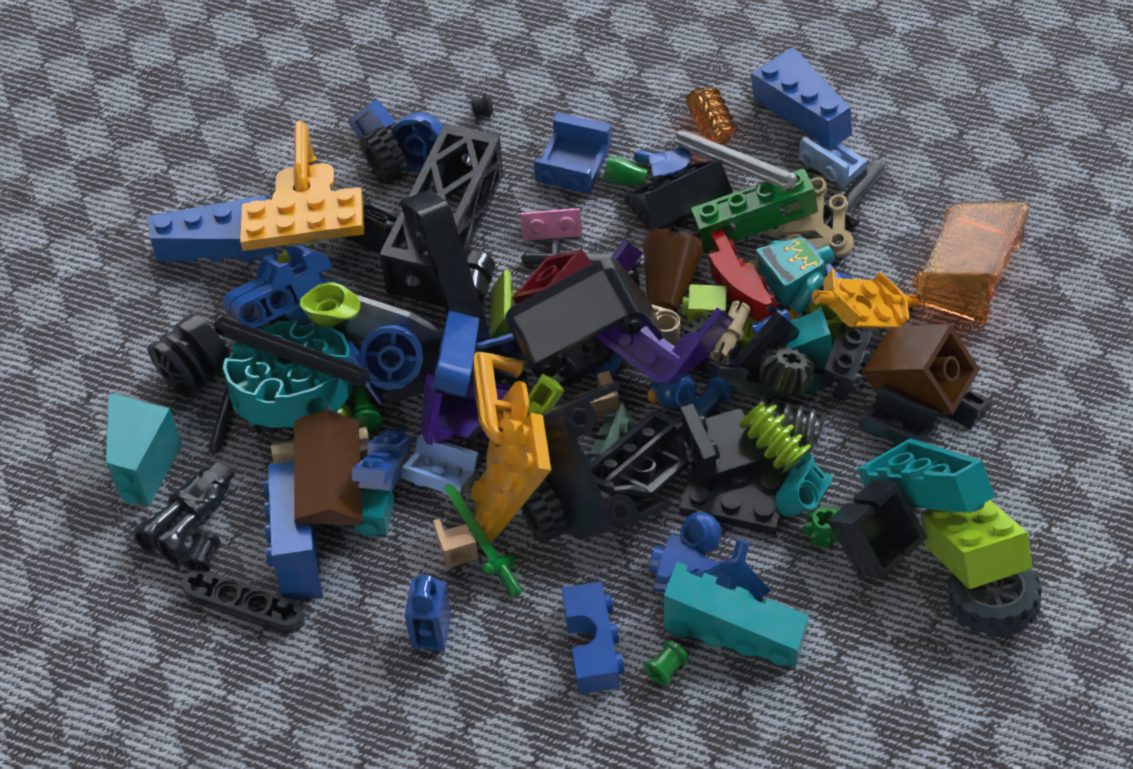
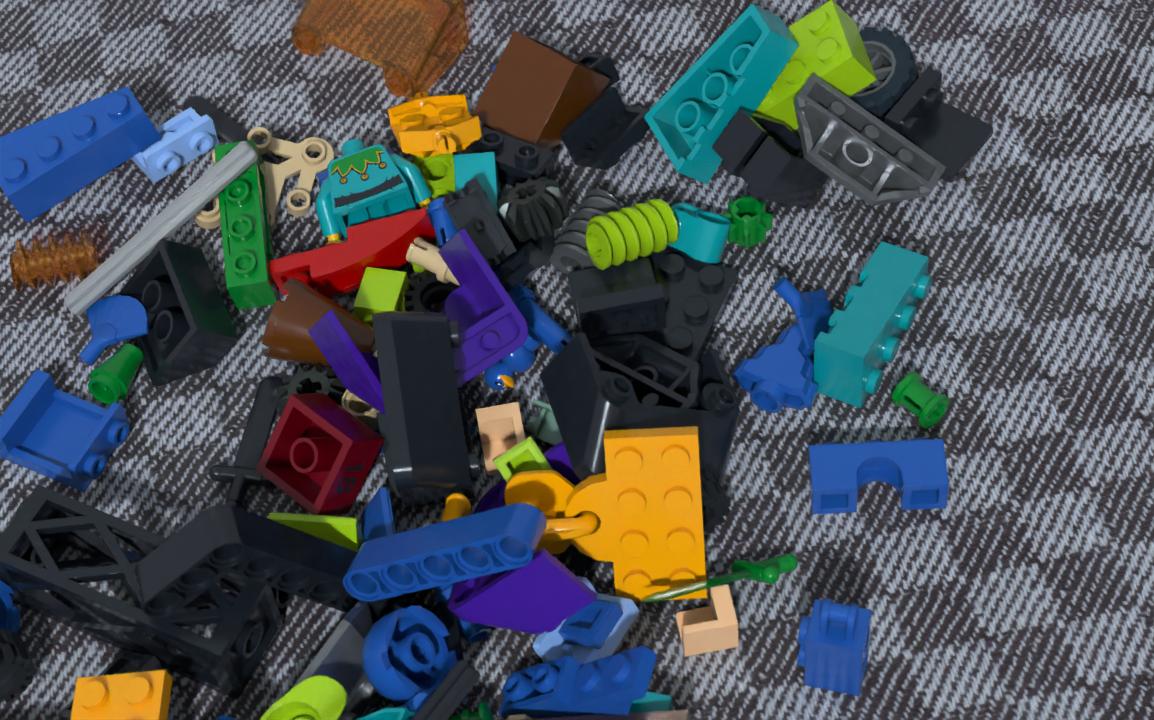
camera: 80 degrees left, 0 degrees up
(441, 465) = (591, 624): none -> blue tile
(551, 224) = (183, 459): bright pink hinge -> none
(701, 532) = (738, 339): blue animal -> none
(895, 586) = (860, 148): none -> flat silver wedge
(950, 653) = (938, 127): none -> black bracket

